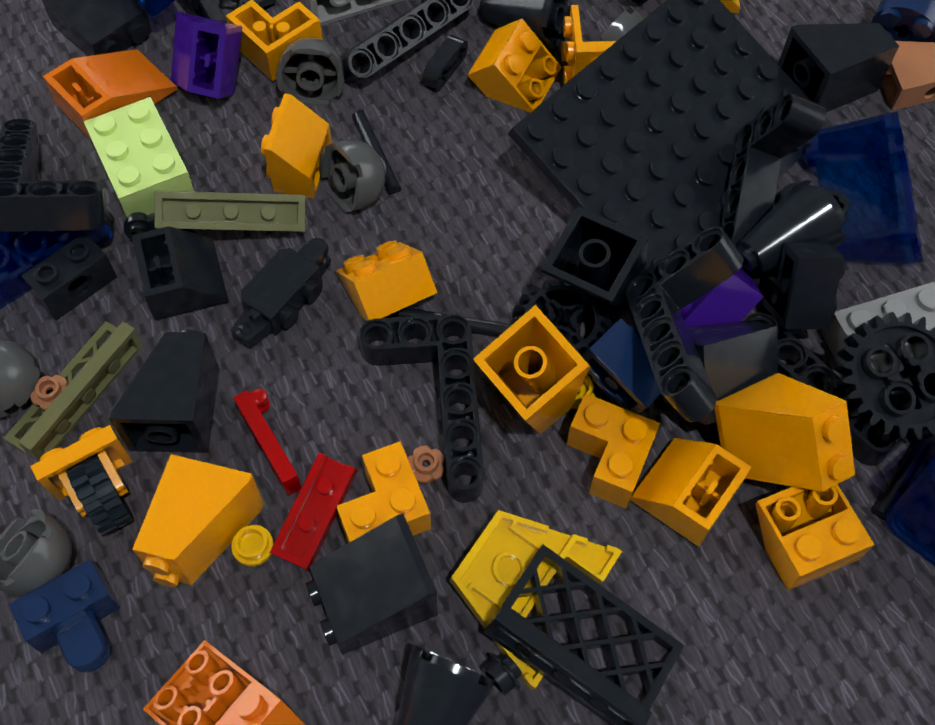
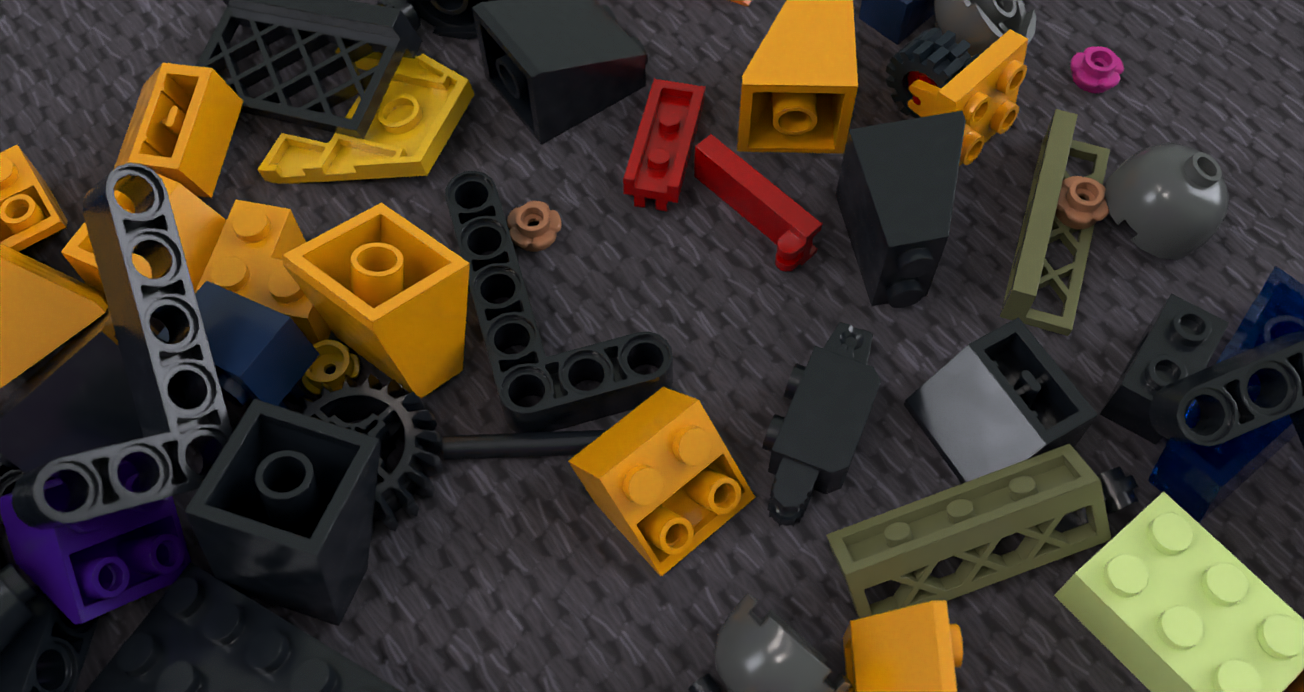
camera: 170 degrees right, 0 degrees up
(252, 545) = (724, 93): yellow plate -> none
(392, 494) = (566, 152): light orange brick -> none
(686, 584) = (183, 126): none -> light orange slope

